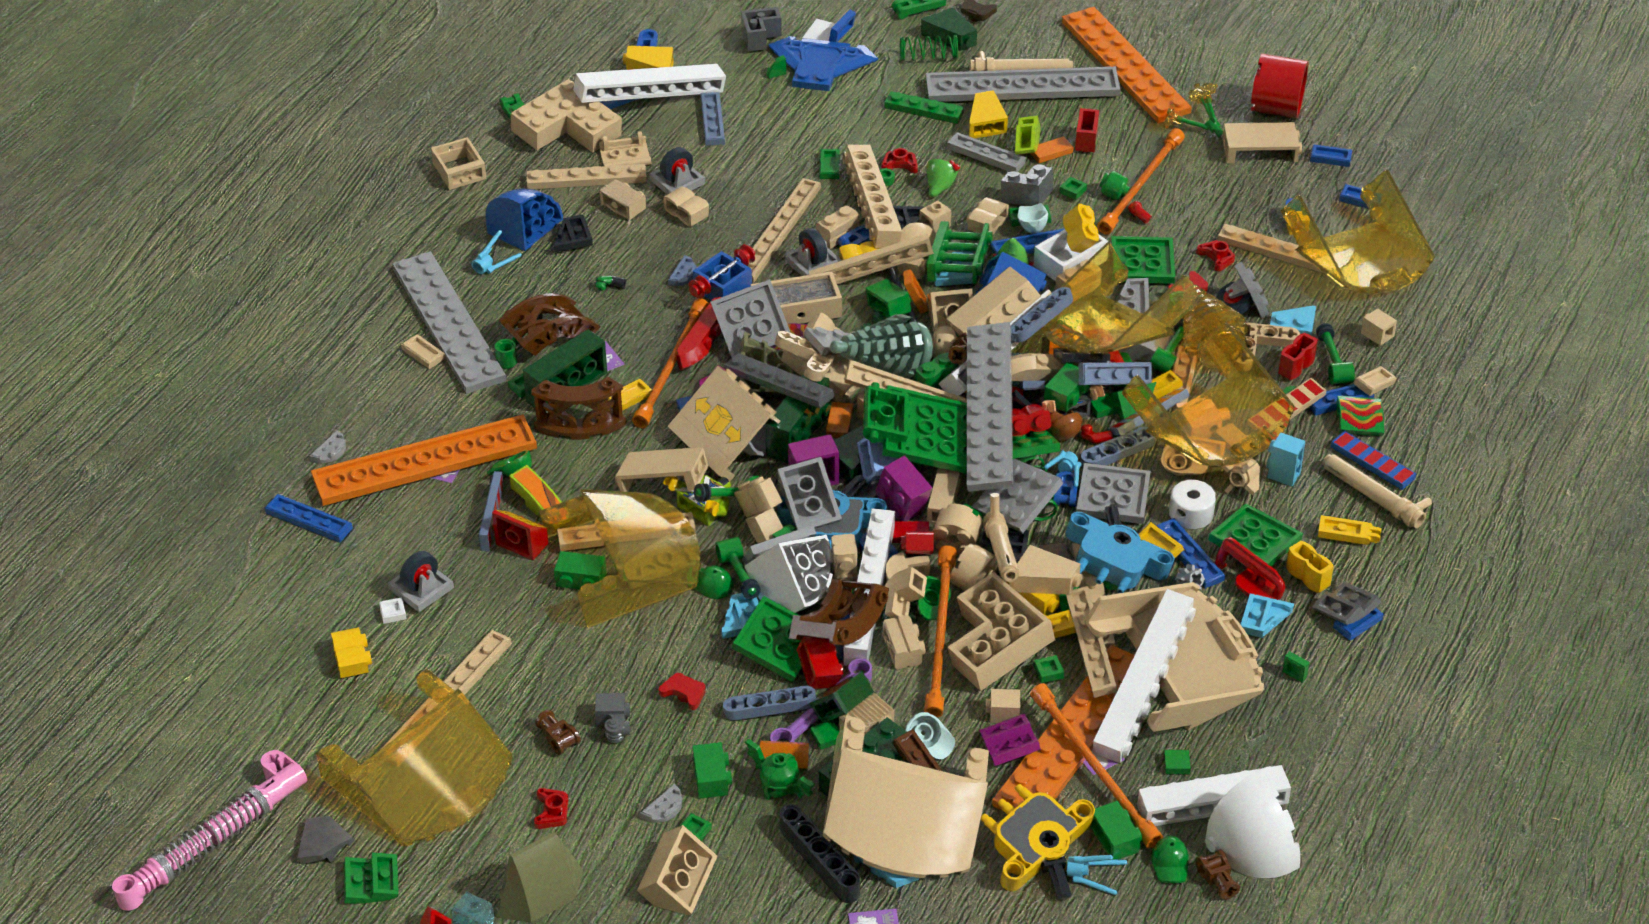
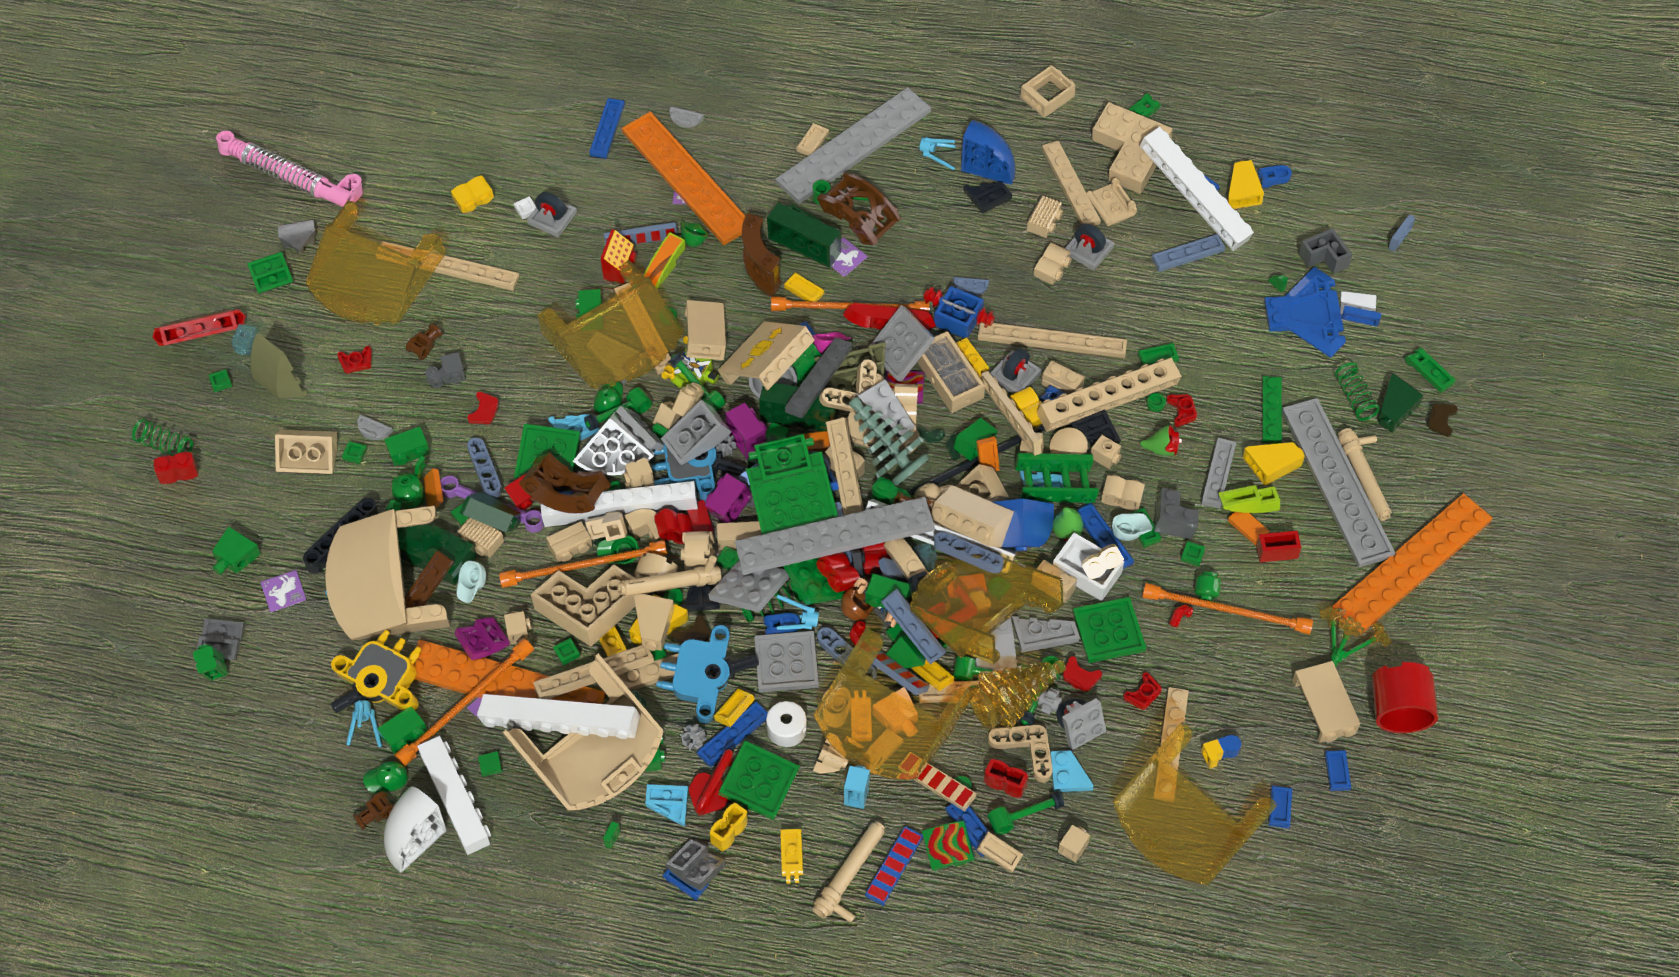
camera: 75 degrees right, 15 degrees up
(610, 280) = (938, 235): arm -> none

